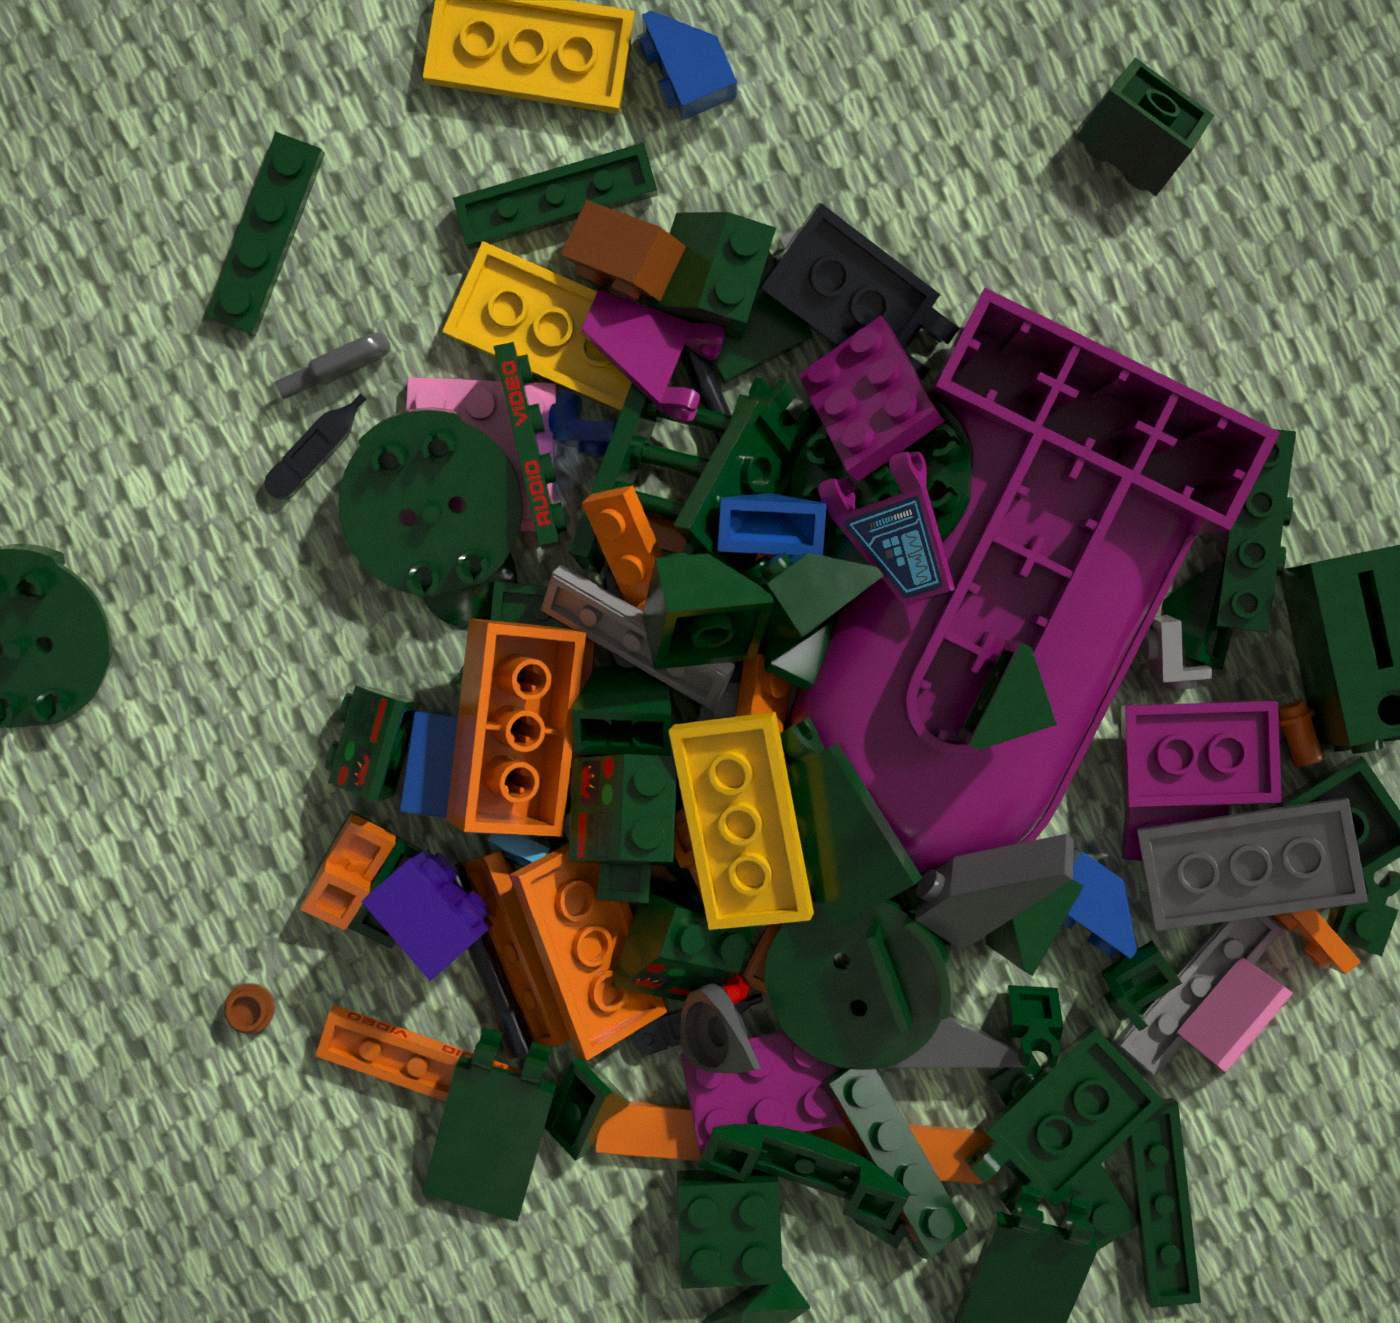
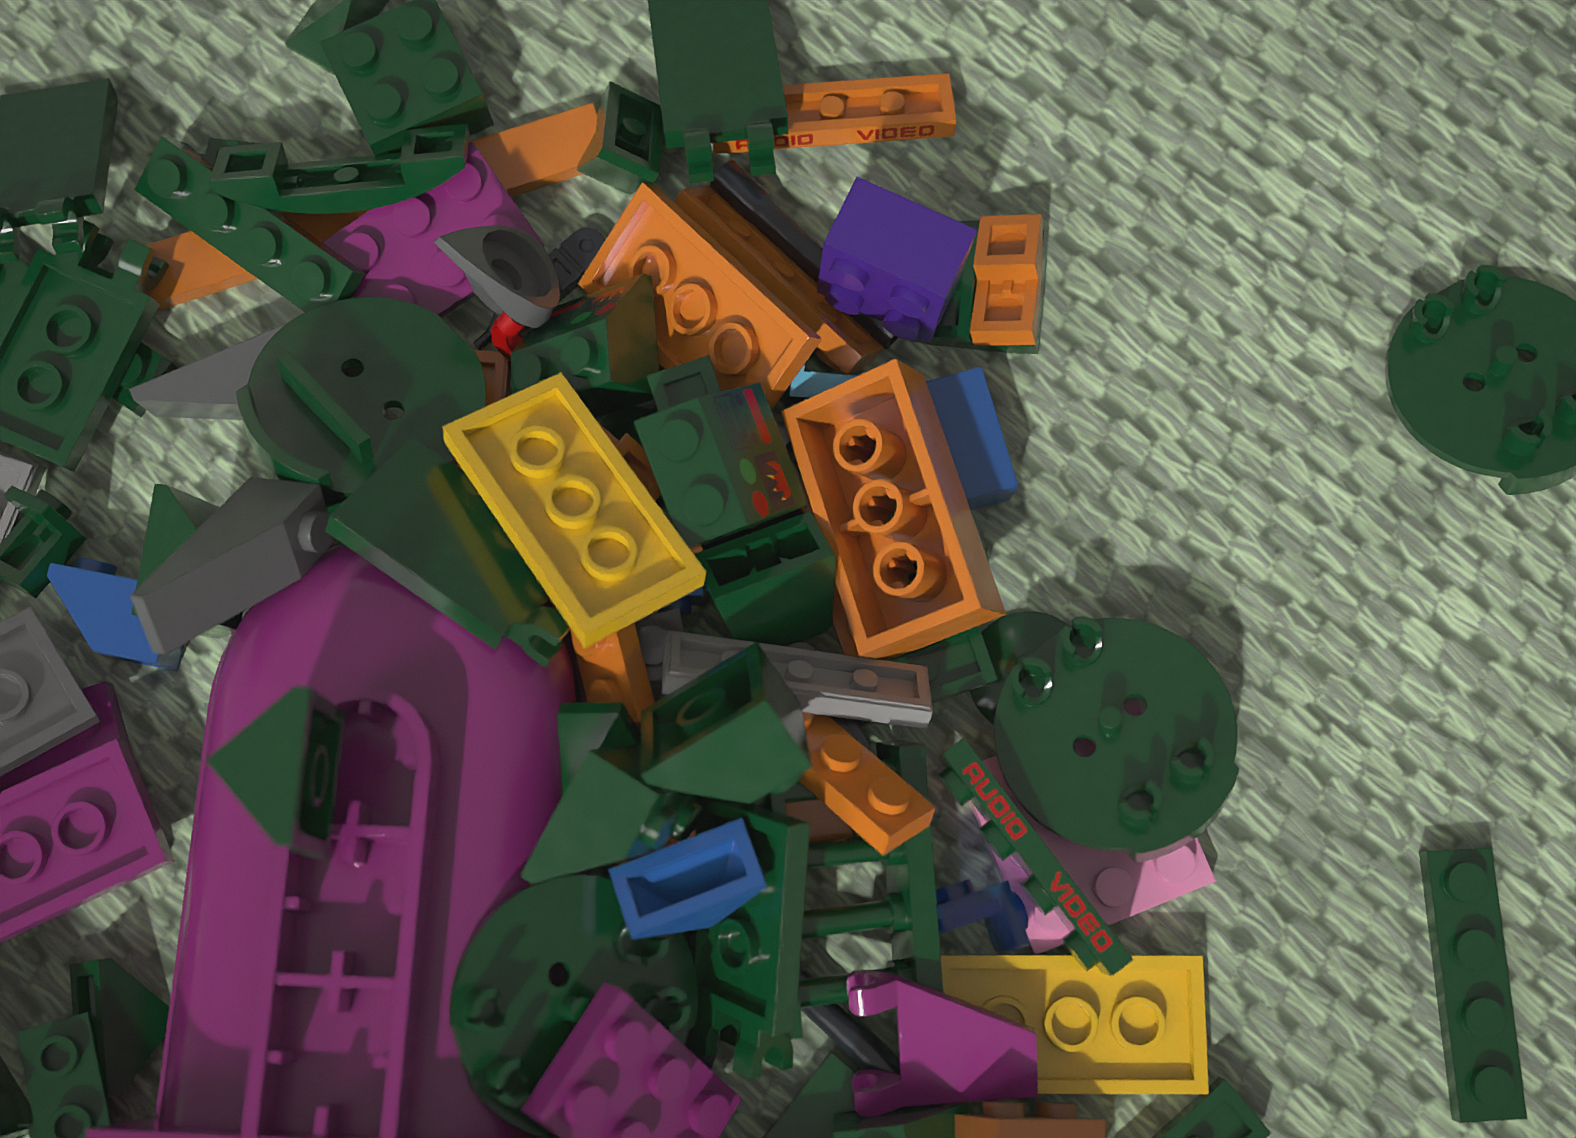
camera: 150 degrees right, 10 degrees down
(249, 1008) = (1045, 95): dark orange plate -> none
(311, 451) = (1284, 742): black piece -> none
(336, 364) = (1309, 857): dark grey piece -> none
(371, 743) = (1049, 430): dark green slope -> none
(896, 532) = (525, 936): flag -> none
(1037, 1019) = (141, 450): dark green plate -> none
(1164, 651) = (142, 949): light grey bracket -> none

